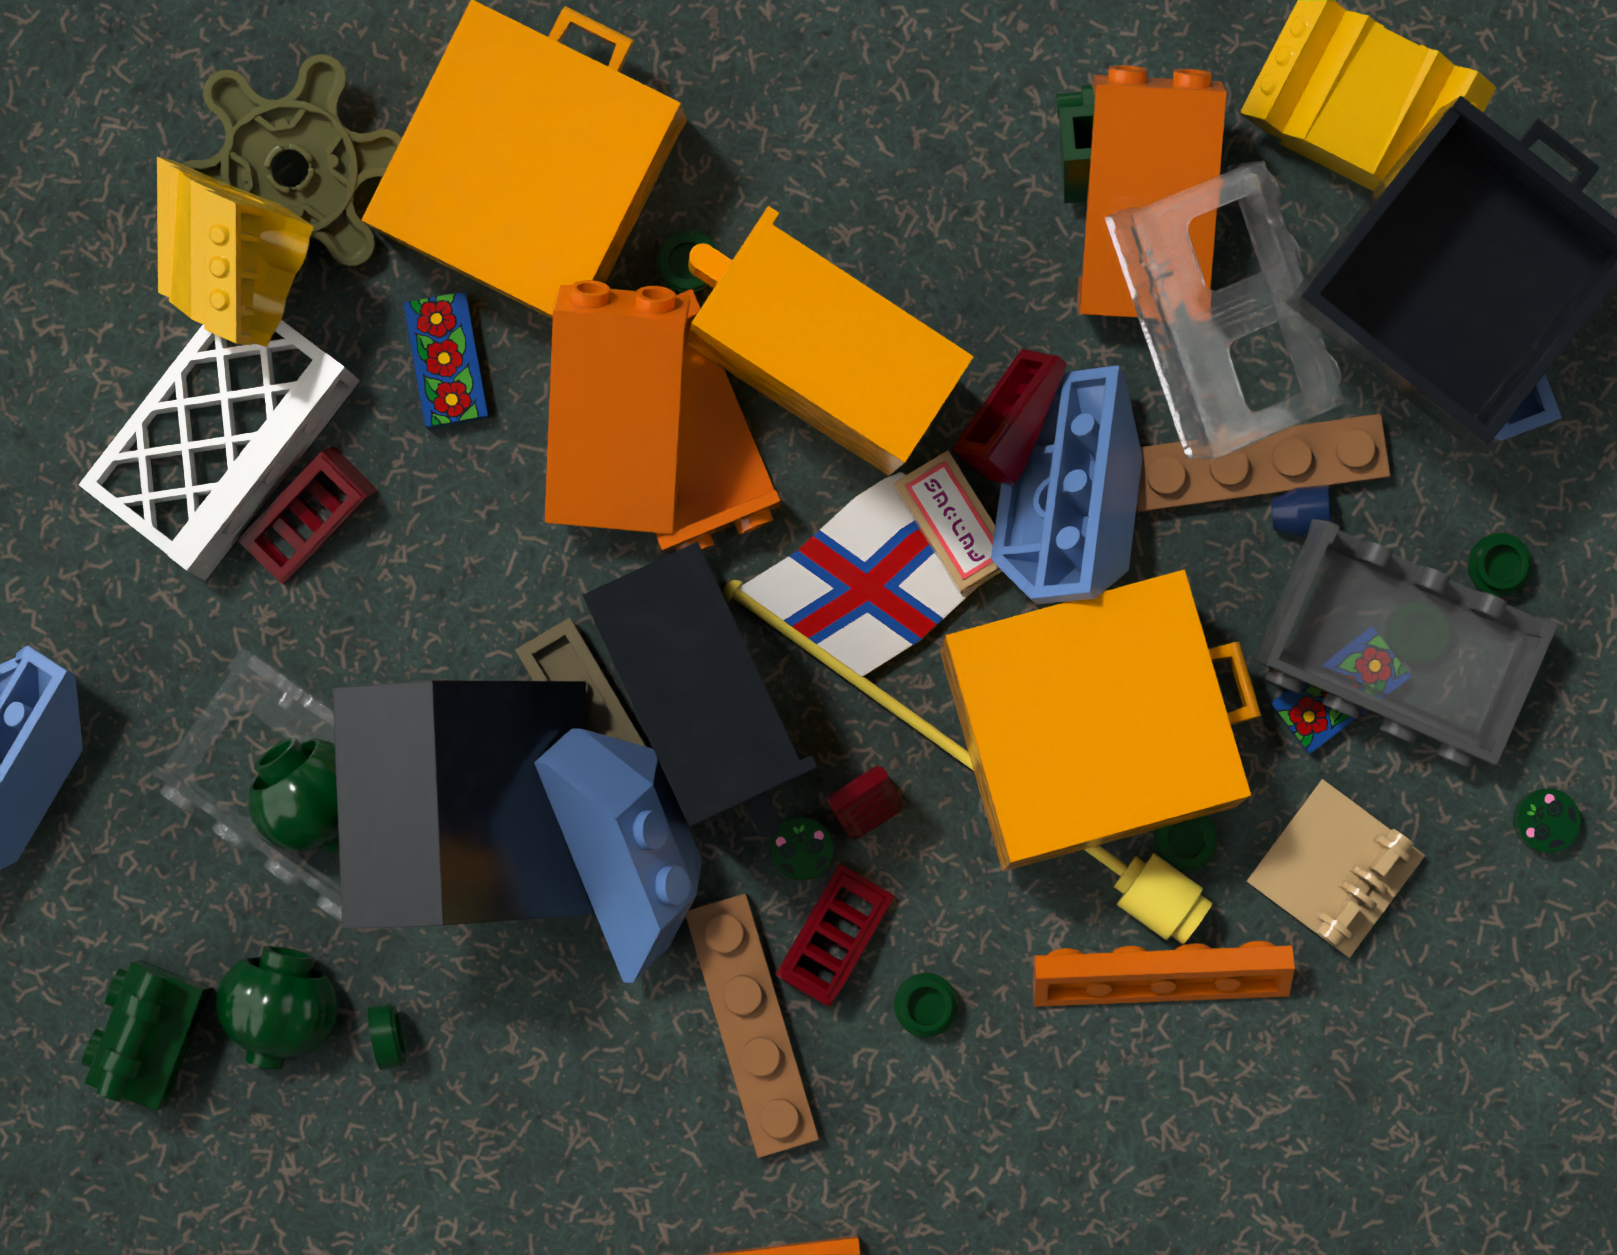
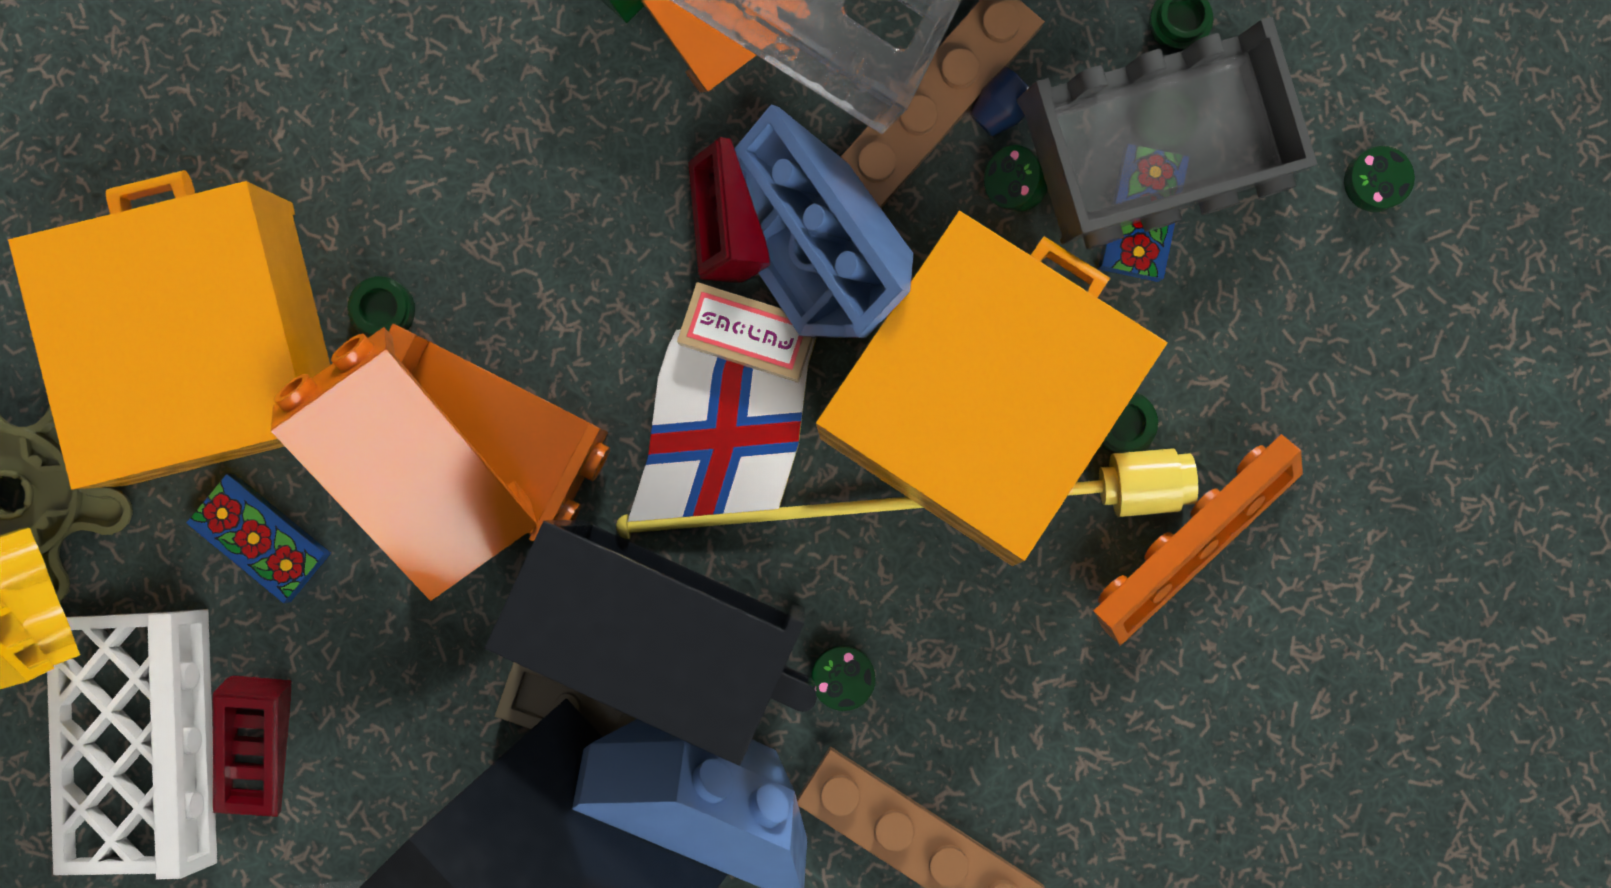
camera: 40 degrees left, 0 degrees up
(805, 980) = (937, 778): dark red slope -> none
(823, 344) = (514, 272): light orange container -> none
(865, 802) = (861, 604): dark red slope -> none
(925, 1005) = (1038, 715): dark green plate -> none
(1260, 578) = (1015, 179): none -> dark green tile
(1335, 868) = (1255, 348): tan hinge -> none

